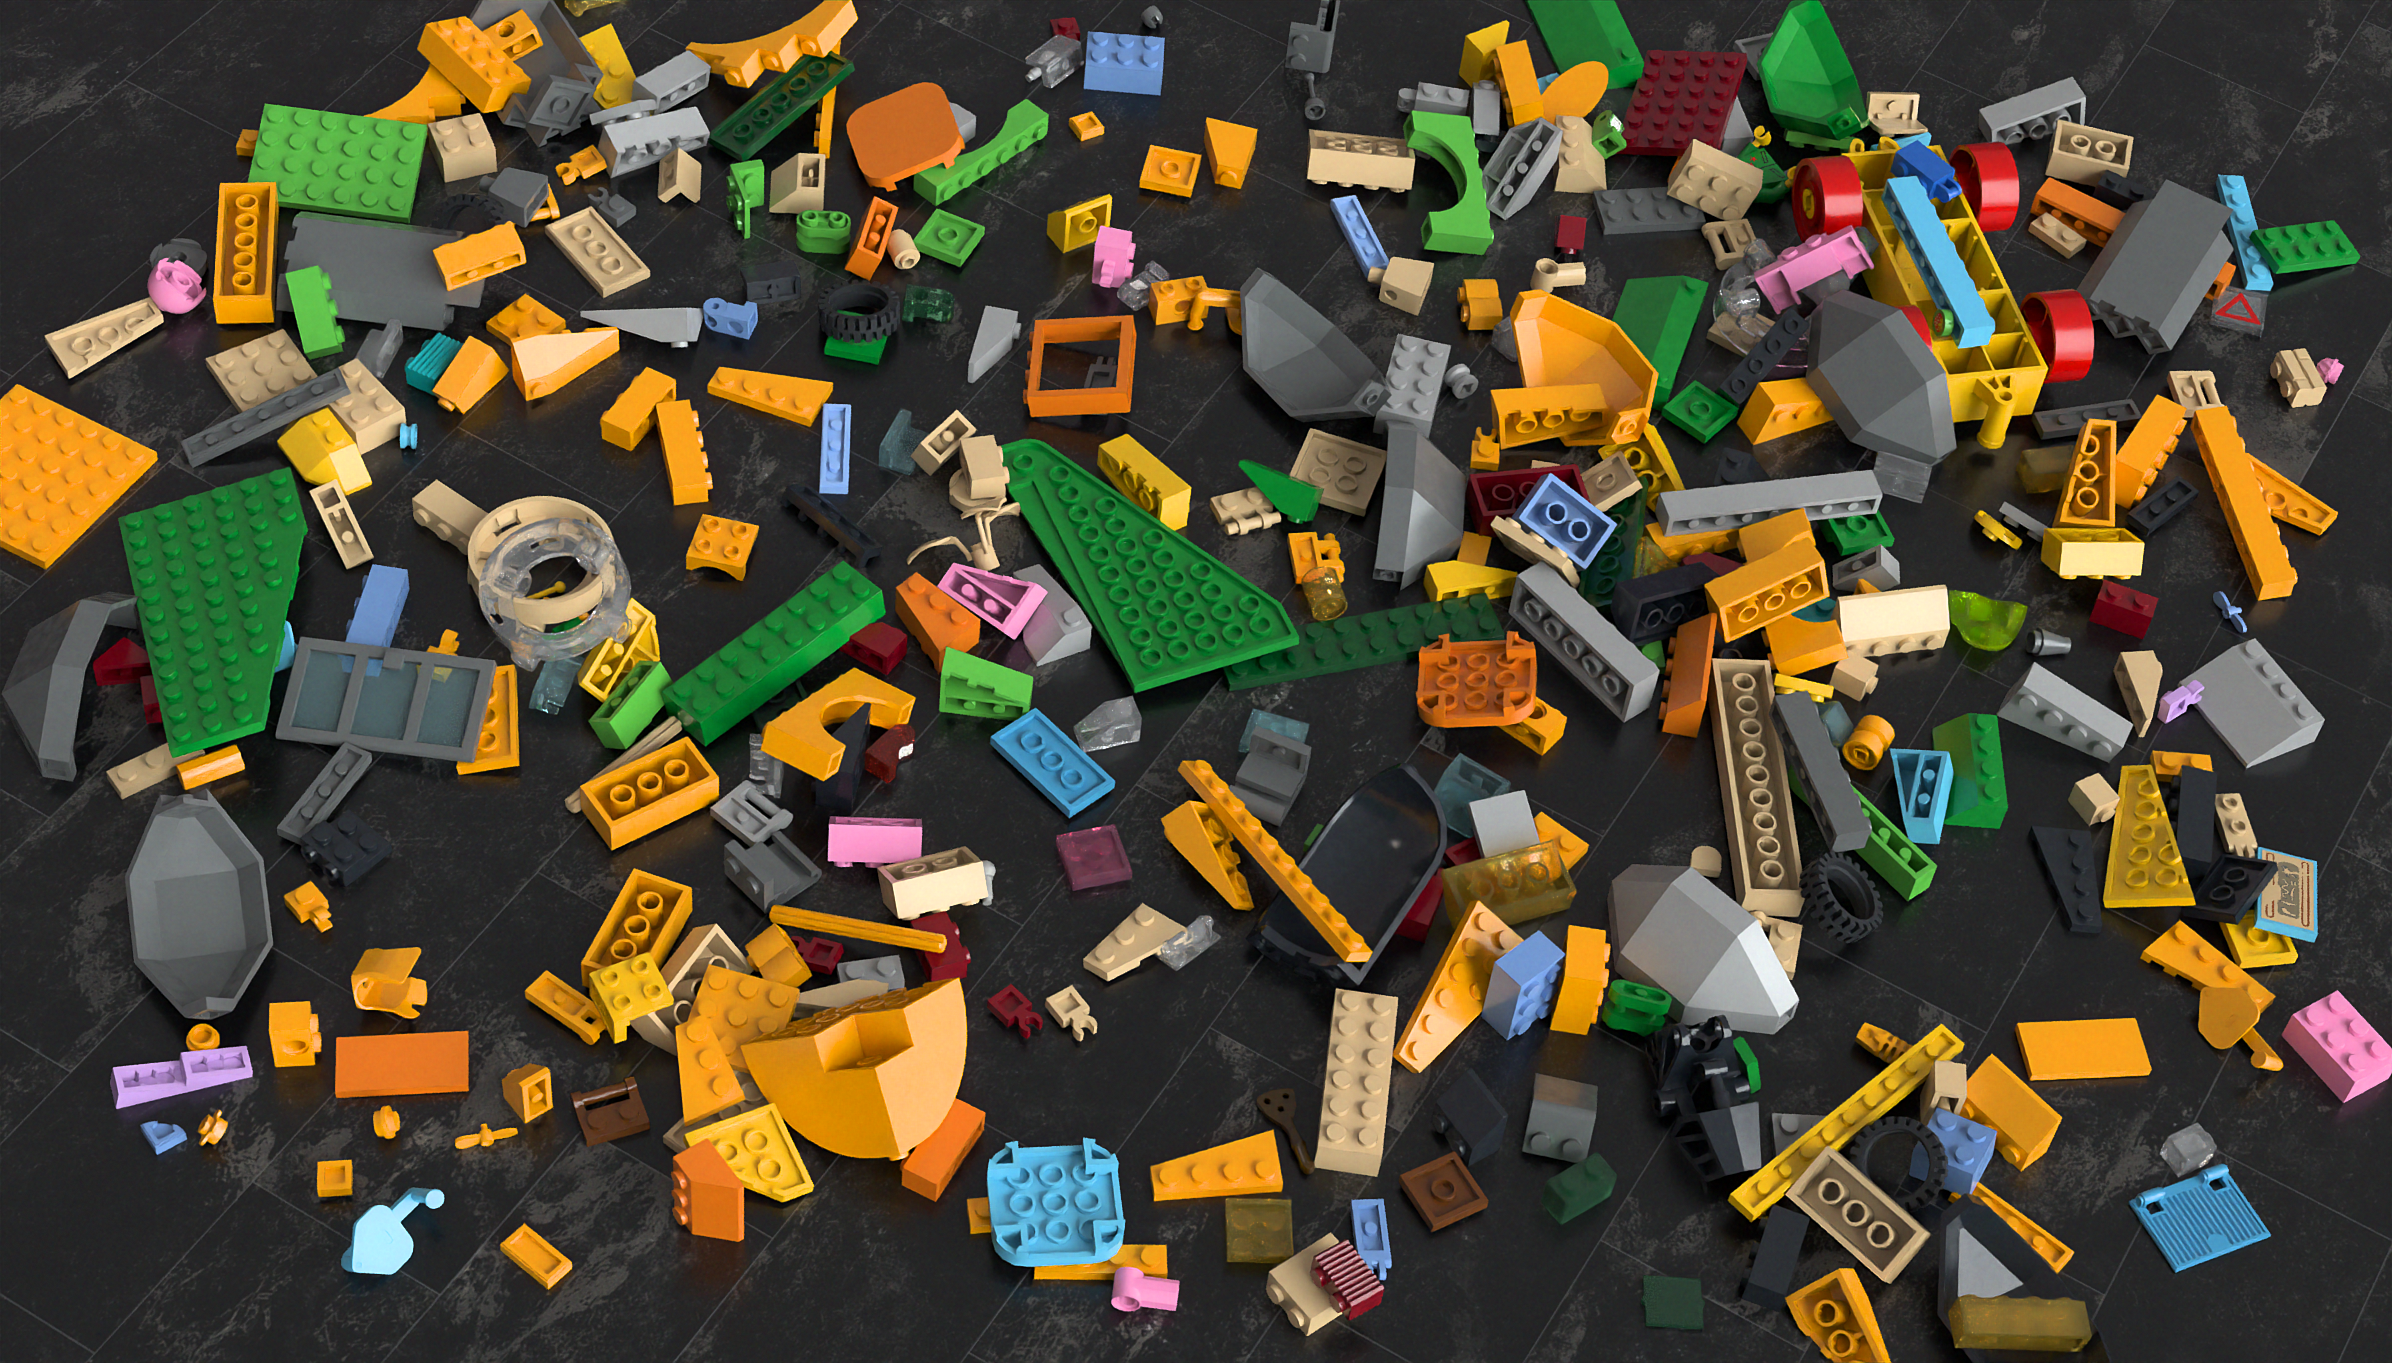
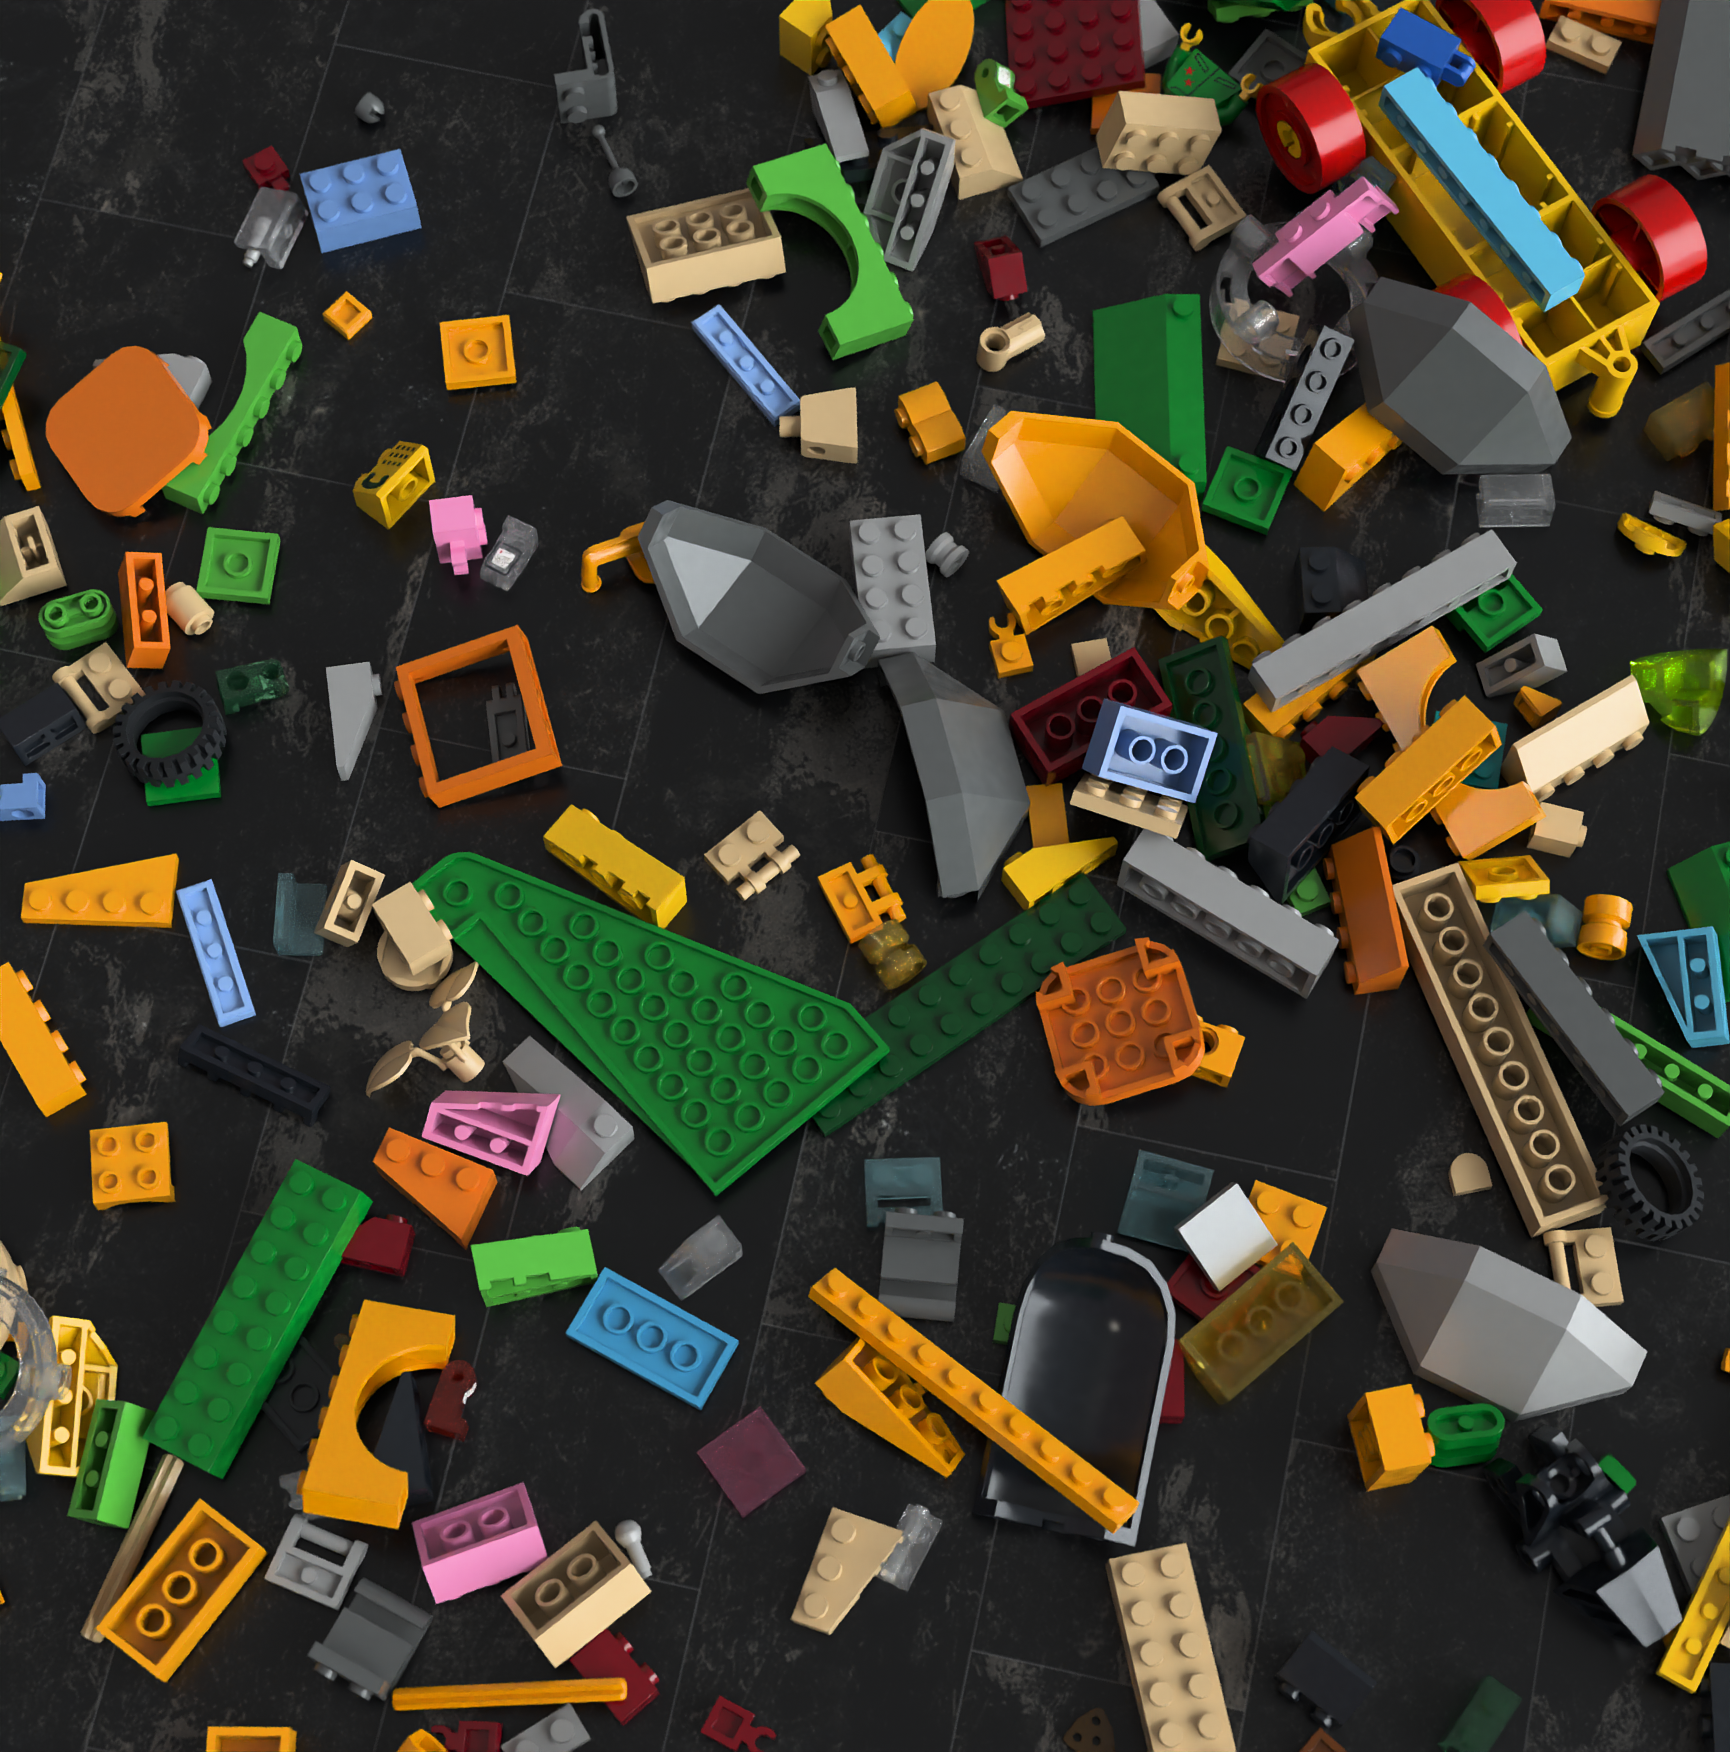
camera: 15 degrees left, 20 degrees up
(827, 271) = (107, 677): none -> tan plate
(1071, 1009) = (800, 1700): tan plate -> none
(1173, 299) = (556, 560): light orange brick -> none
(1229, 151) = (541, 294): light orange slope -> none
(1286, 492) = (795, 817): green slope -> none
(1341, 467) = (843, 754): tan plate -> none
(1433, 99) = (770, 124): light grey brick -> none
(1456, 987) = (1256, 1462): light orange wing -> none
(1523, 985) = (1330, 1472): medium blue brick -> none
(1560, 1118) = (1425, 1624): dark grey piece -> none
(1610, 481) = (1181, 656): tan plate -> none
(1943, 322) = (1517, 284): bright green tile -> none

